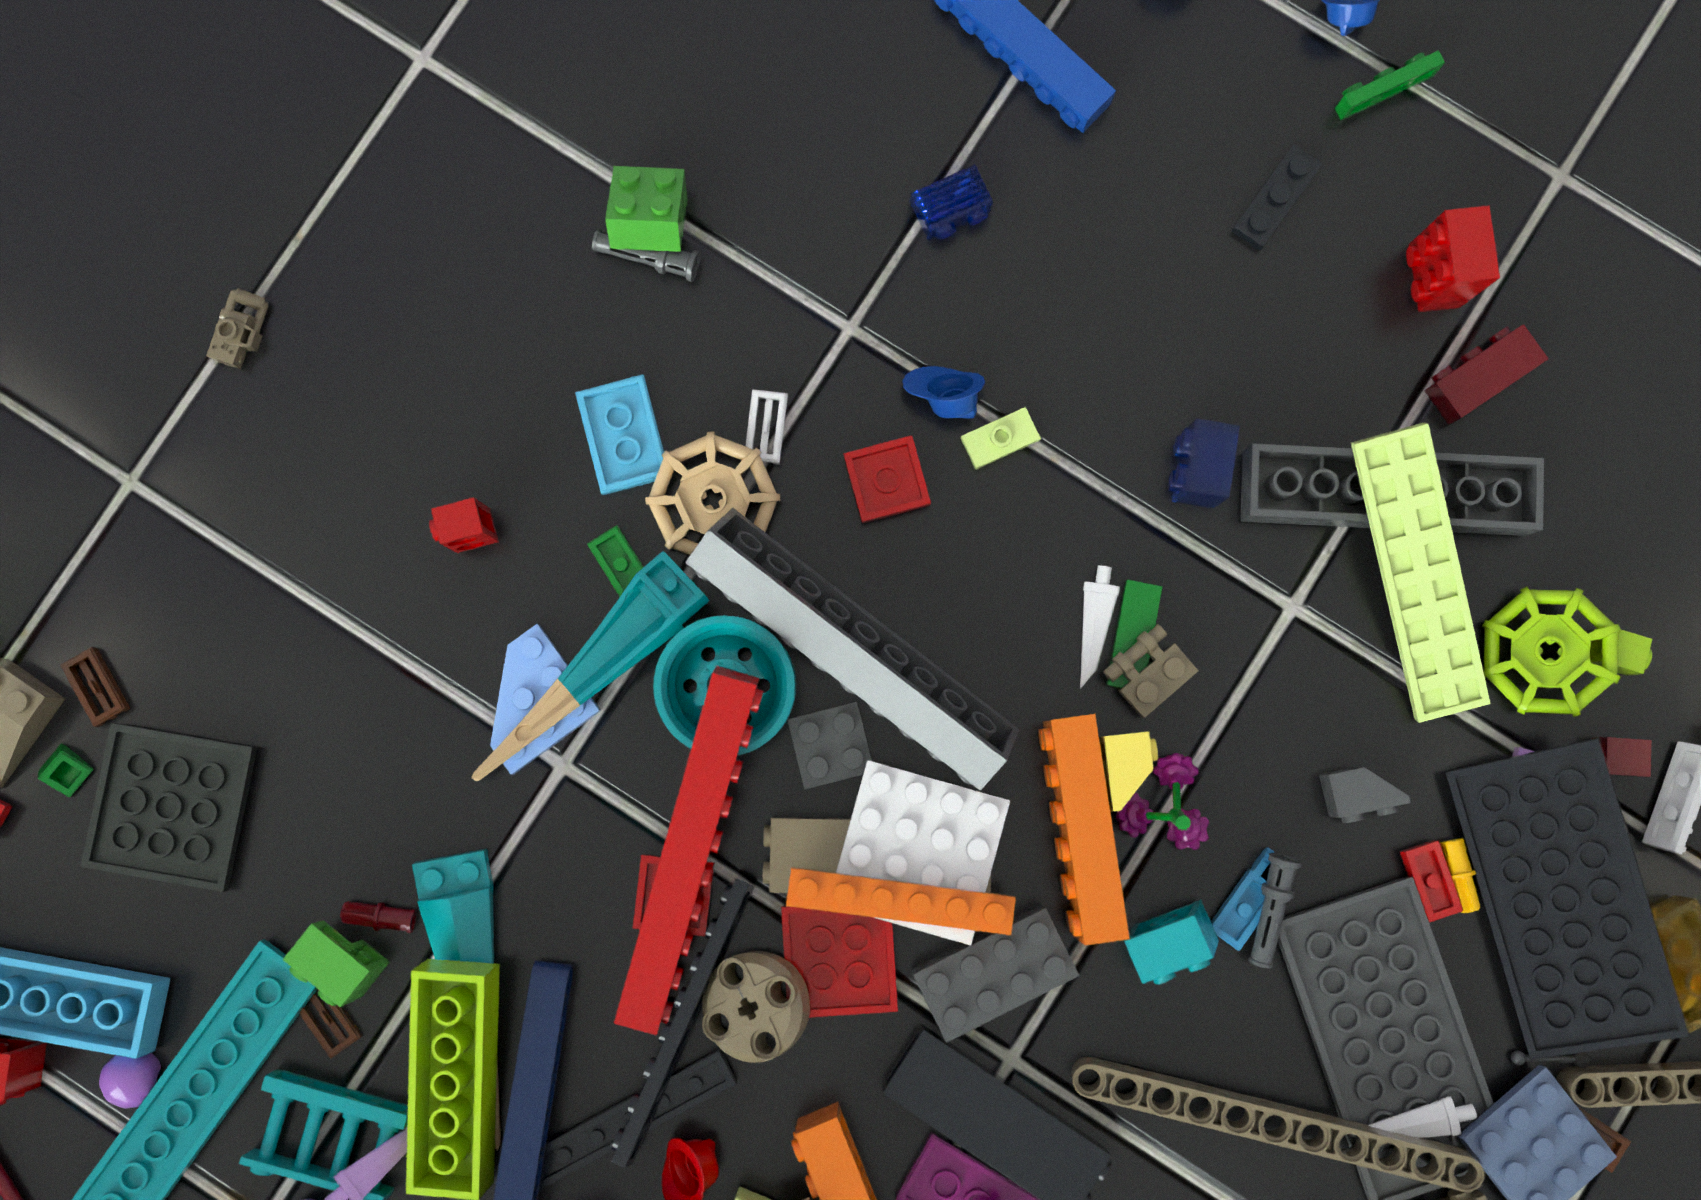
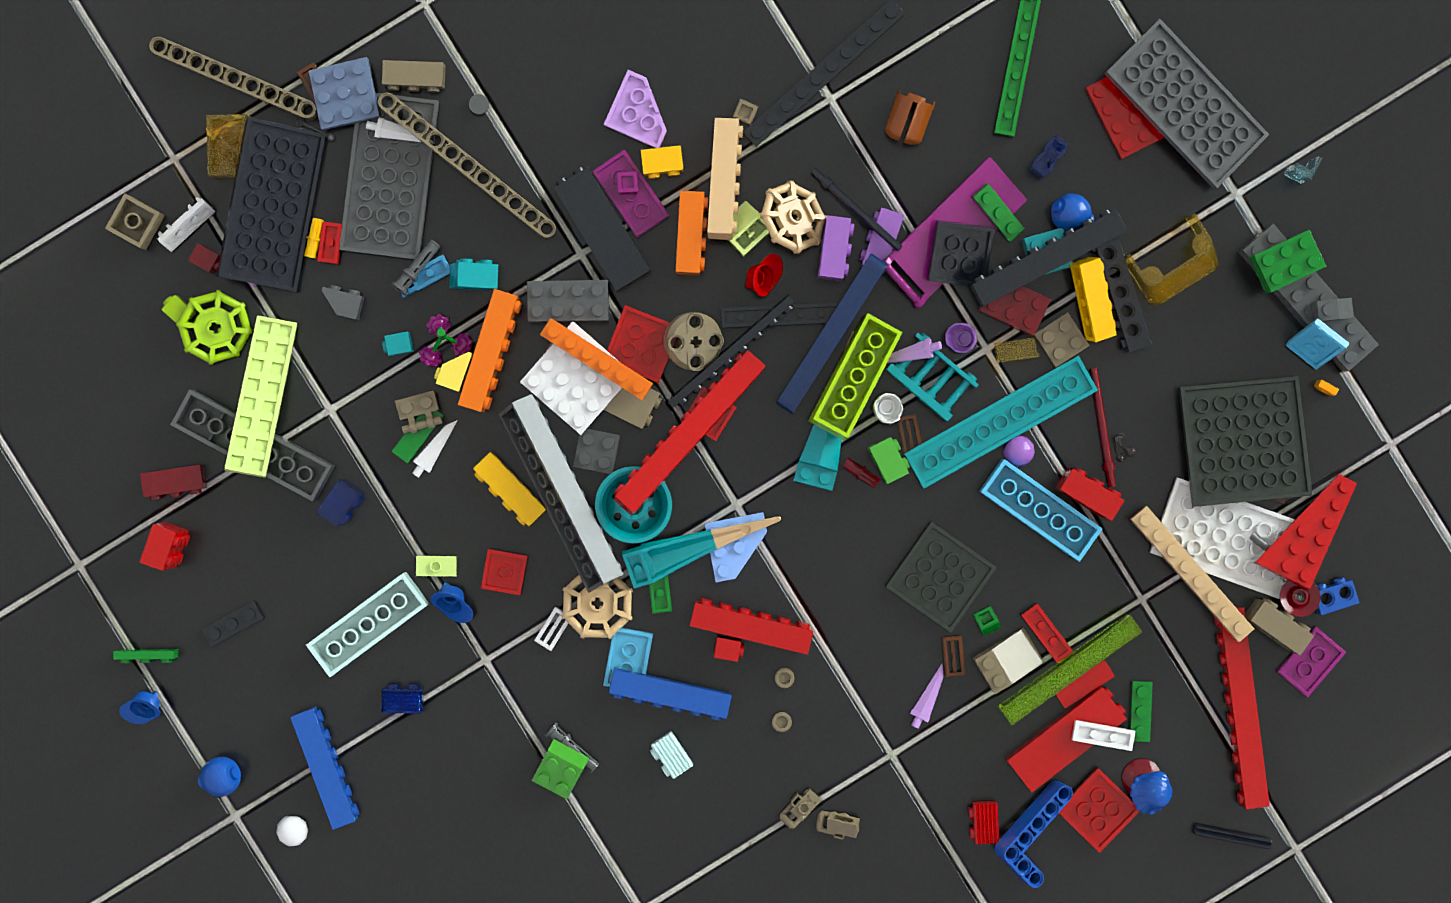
camera: 155 degrees left, 5 degrees up
(107, 592) = (925, 704): none -> lavender bar
(161, 330) = (838, 824): none -> dark tan piece
(329, 451) = (781, 722): none -> dark tan tile
(357, 523) = (784, 677): none -> dark tan tile
(379, 1047) = (887, 408): none -> white hair
(439, 578) = (751, 627): none -> red brick
(481, 315) = (671, 754): none -> light aqua brick
(526, 410) = (670, 693): none -> blue brick
(942, 616) = (510, 489): none -> yellow brick
(1064, 292) = (367, 624): none -> light aqua brick
(1238, 766) = (398, 344): none -> teal brick

